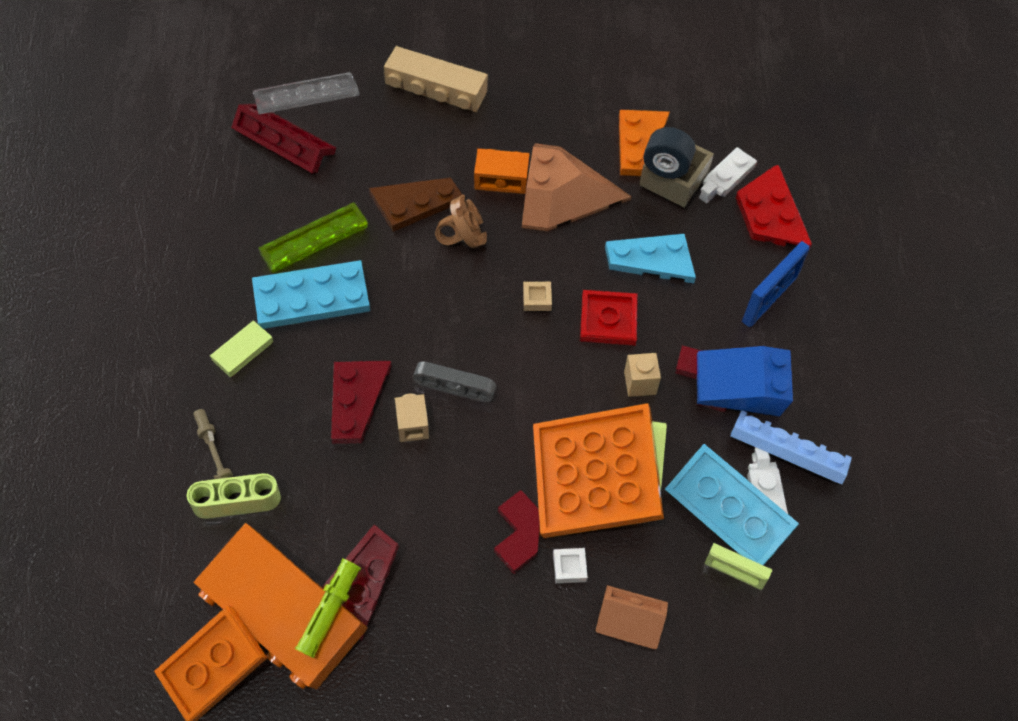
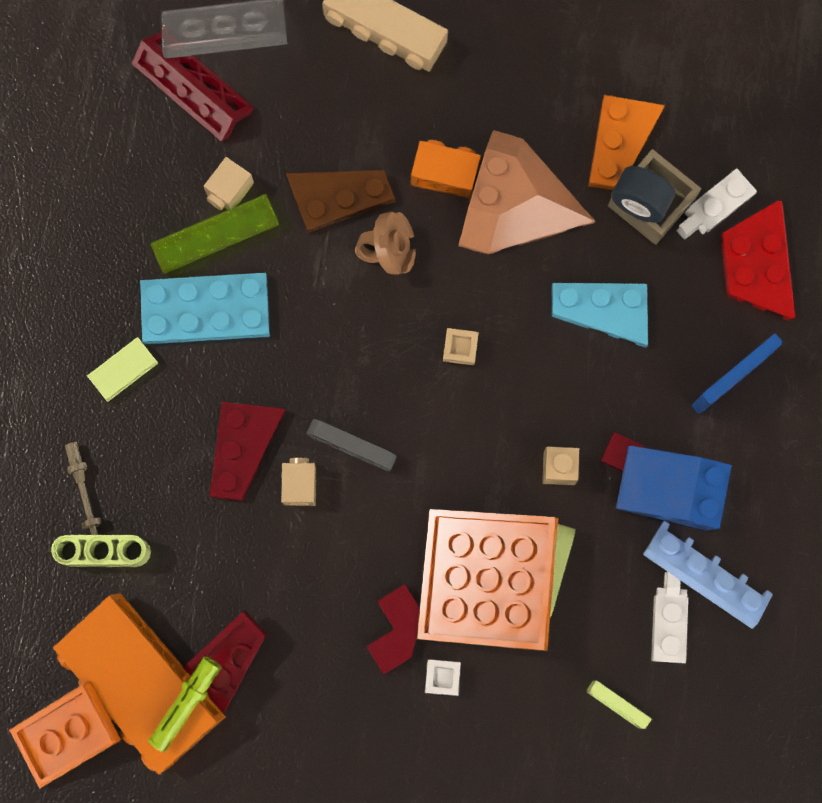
camera: 10 degrees right, 20 degrees up
(321, 198) = (228, 185): none -> tan brick
(609, 317) = (538, 382): red tile -> none
(632, 617) = (498, 740): nougat panel -> none
(731, 506) = (626, 638): medium azure plate -> none

